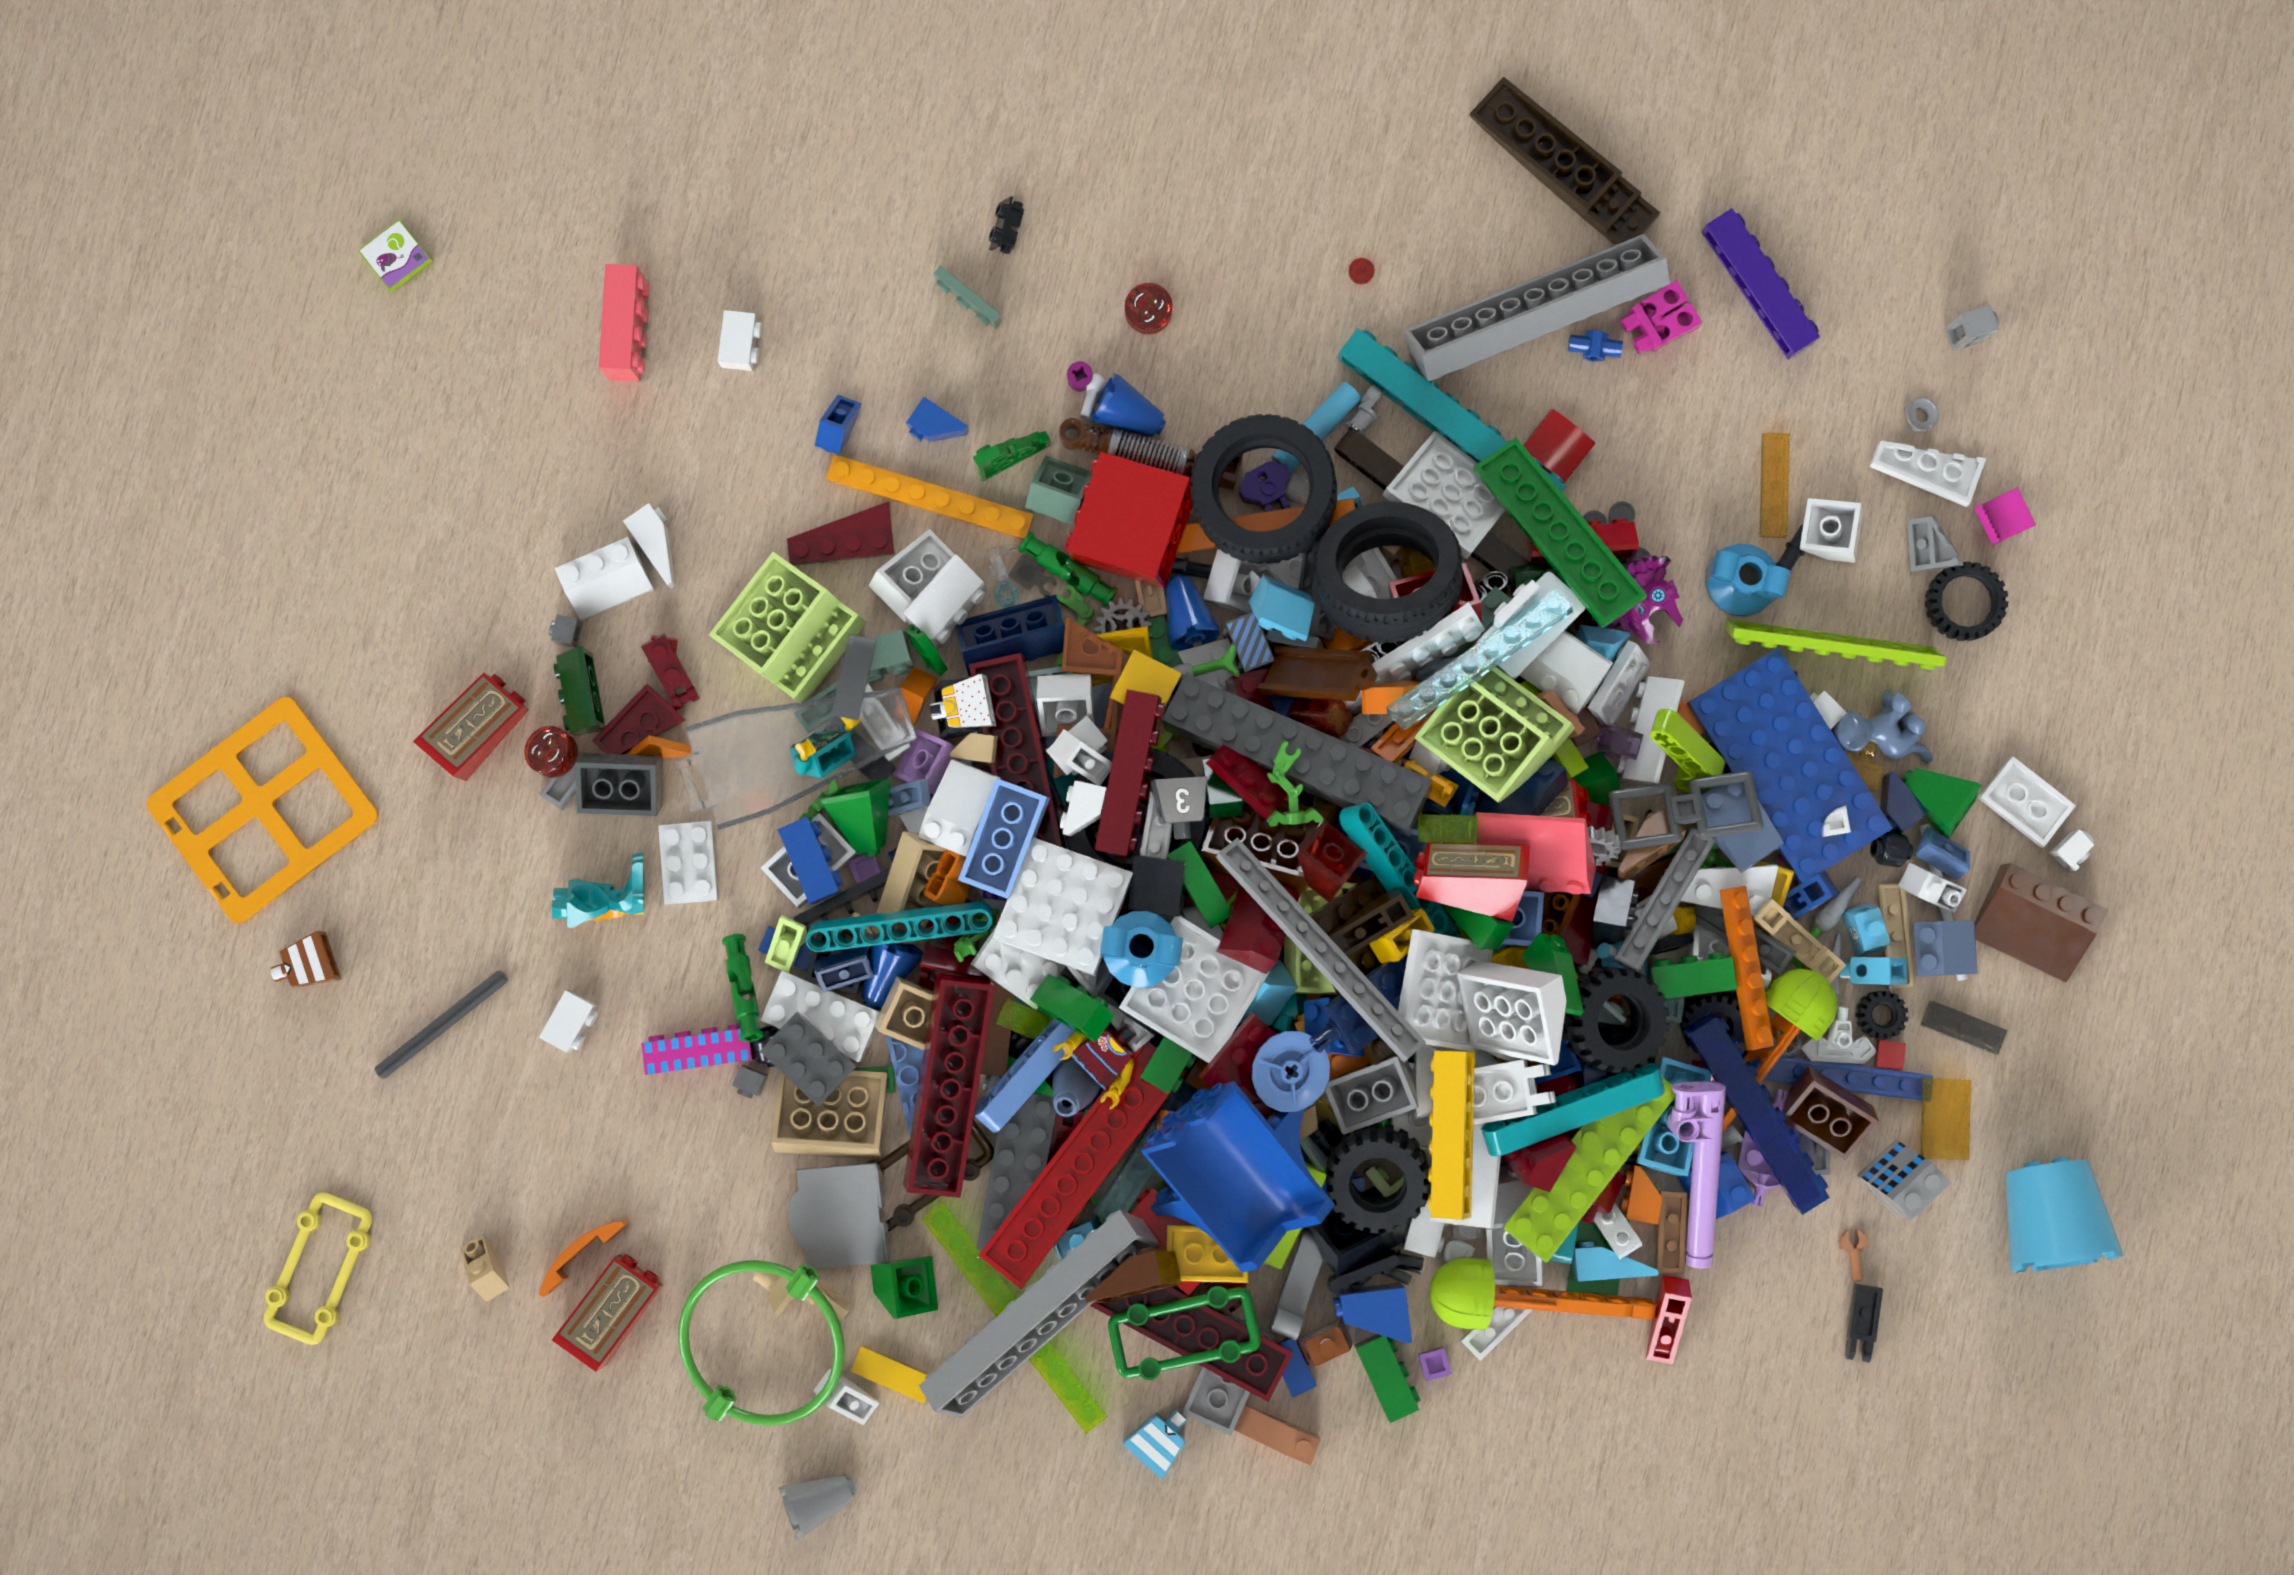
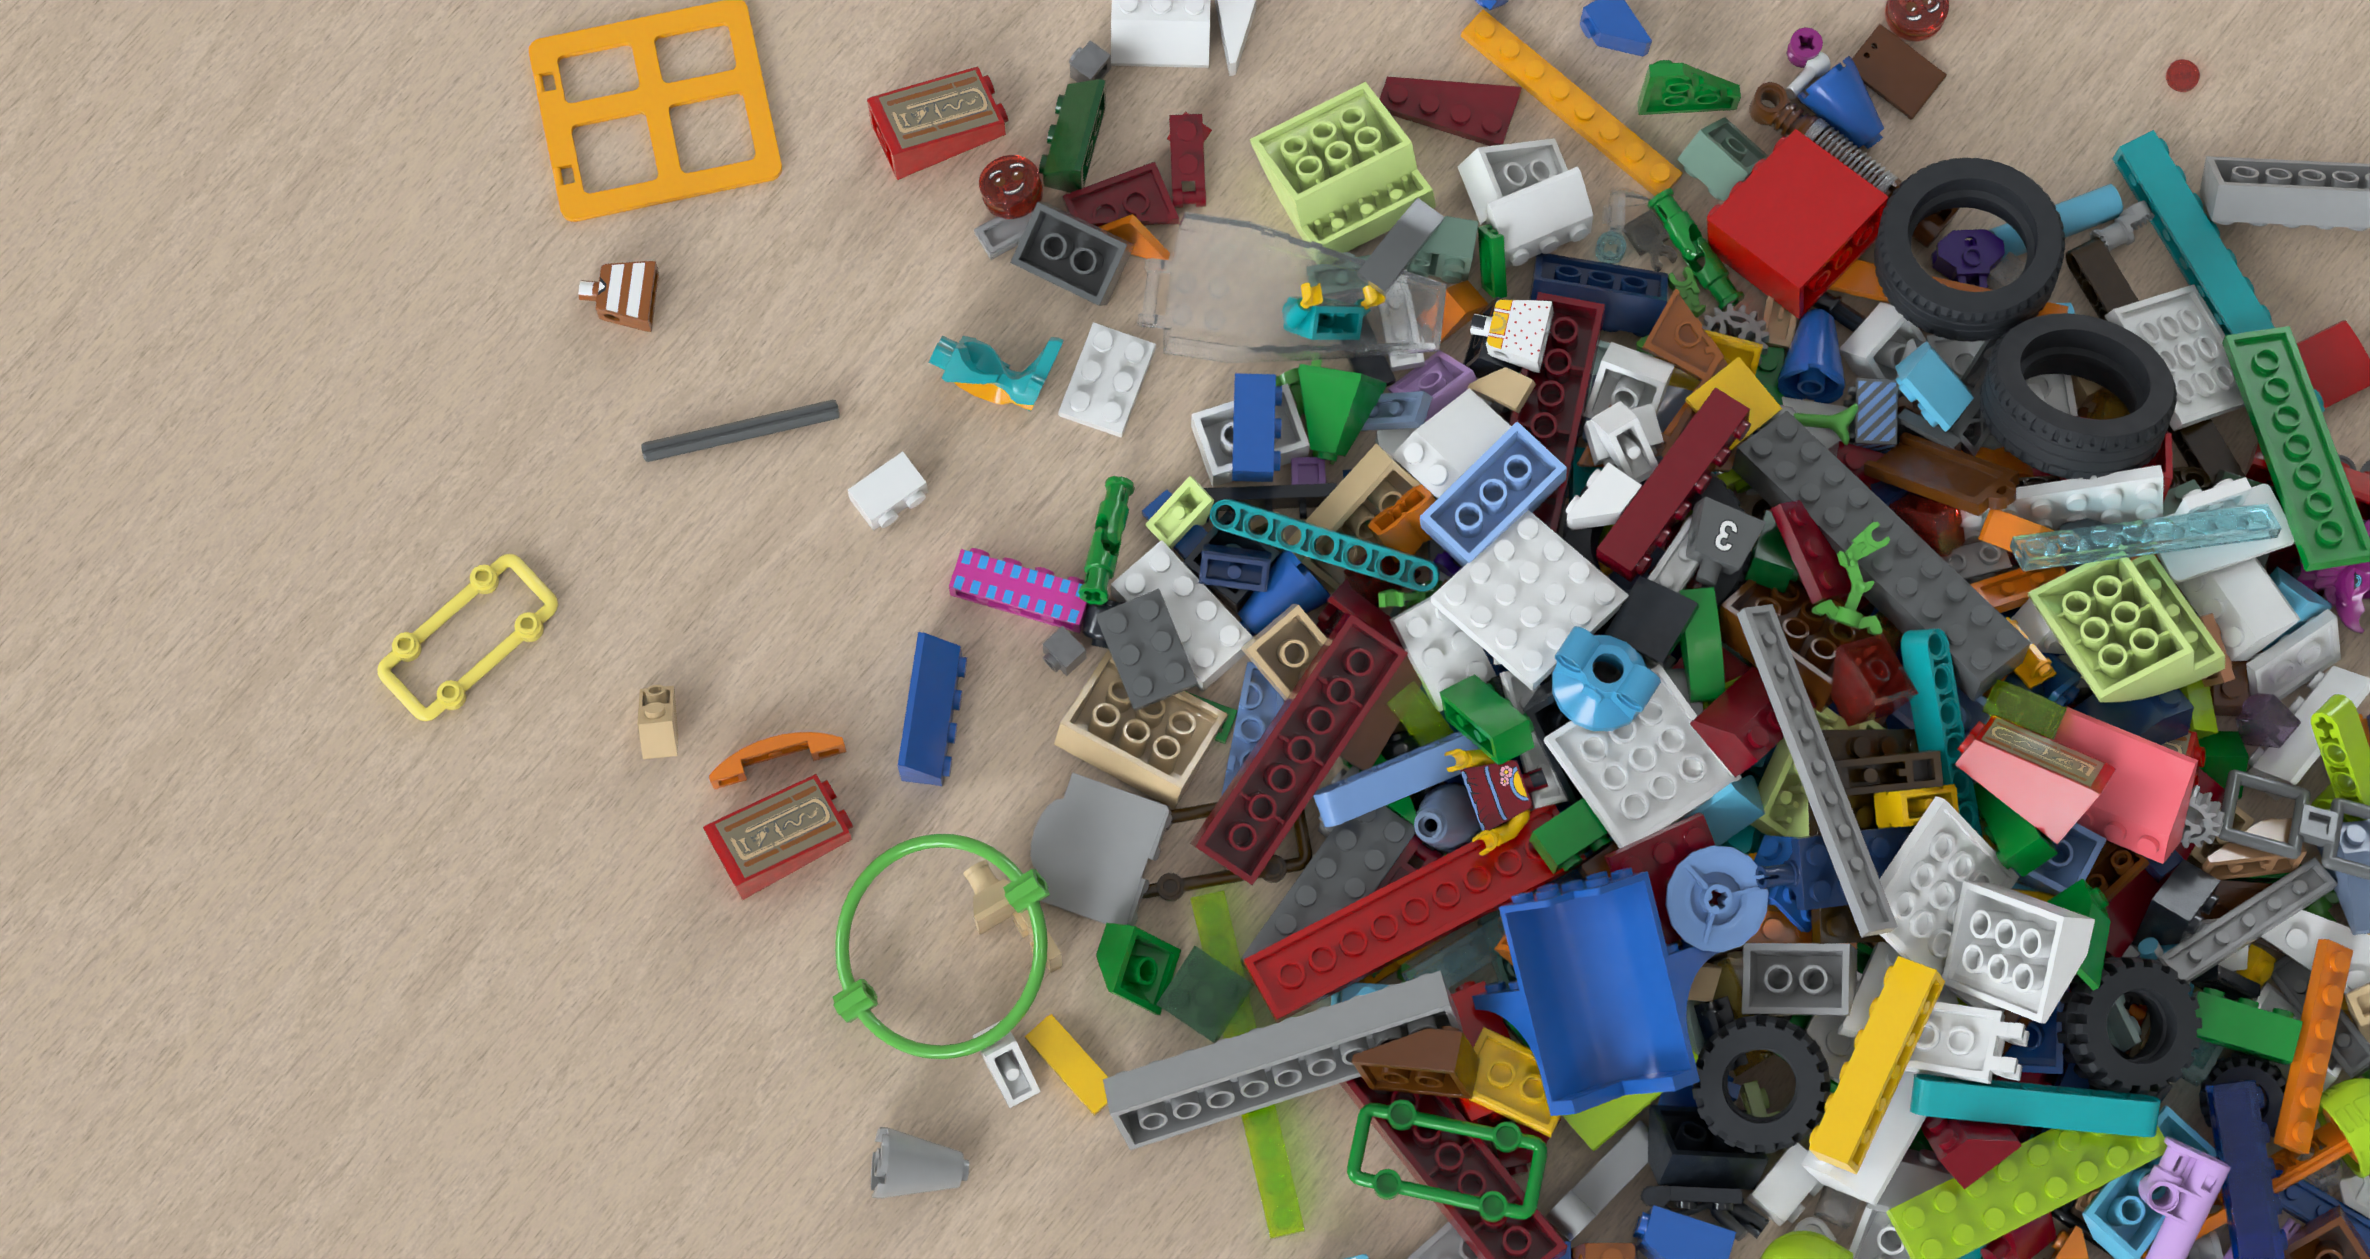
camera: 25 degrees right, 10 degrees down
(674, 1171) = (930, 711): none -> blue slope
(962, 1284) = (1205, 994): none -> clear green plate
(1154, 363) = (1897, 71): none -> reddish brown container

